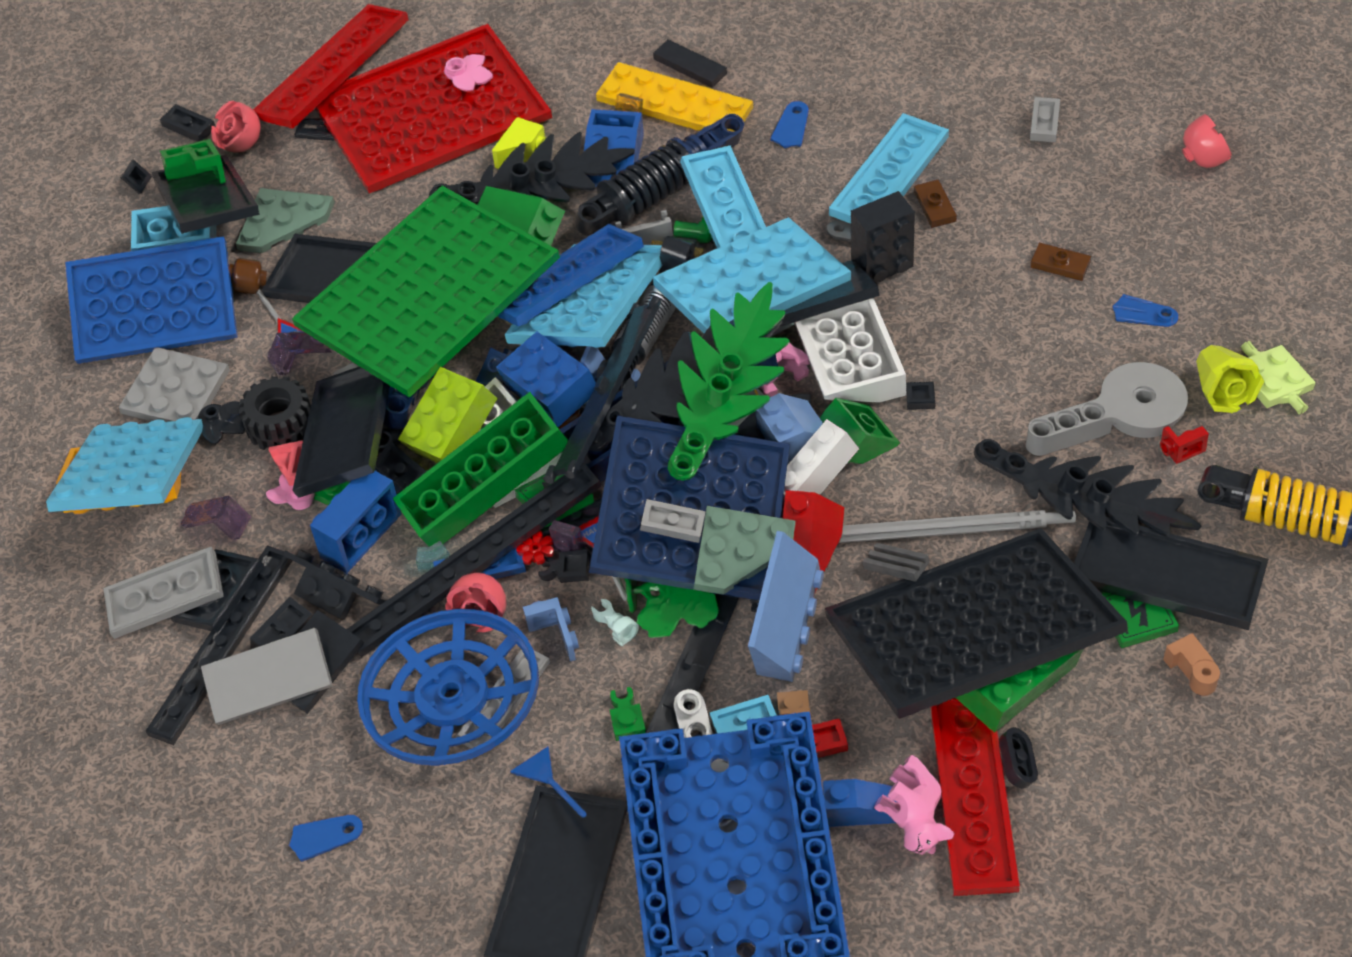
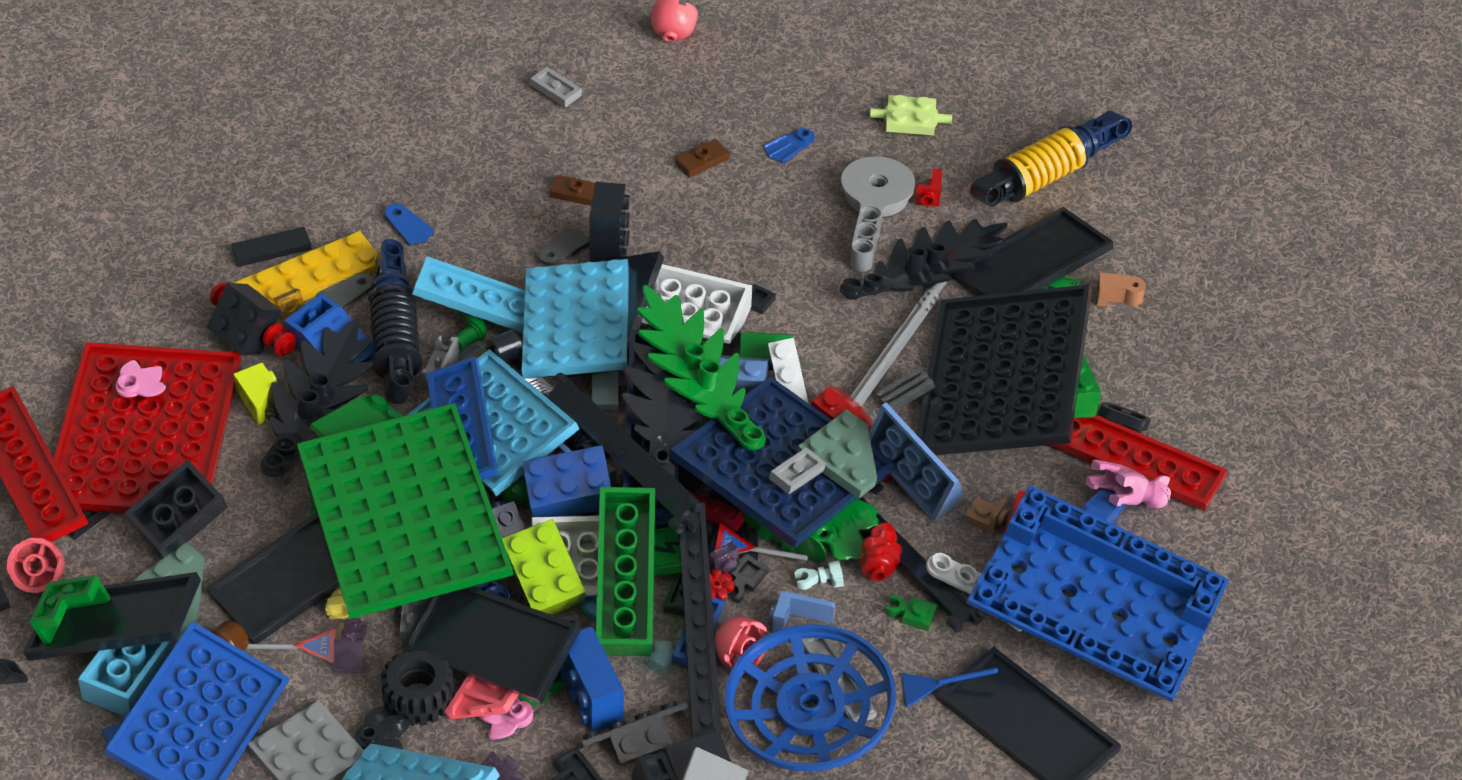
camera: 65 degrees left, 5 degrees down
(343, 166) = (176, 509): none -> black brick
(578, 90) = (248, 320): none -> black brick
(663, 647) = (880, 553): none -> red head
(670, 128) = (348, 290): none -> dark grey piece
(735, 716) = (974, 543): medium azure plate -> none
(892, 164) = (523, 196): medium azure plate -> none
(1228, 378) = (896, 133): neon yellow cone -> none

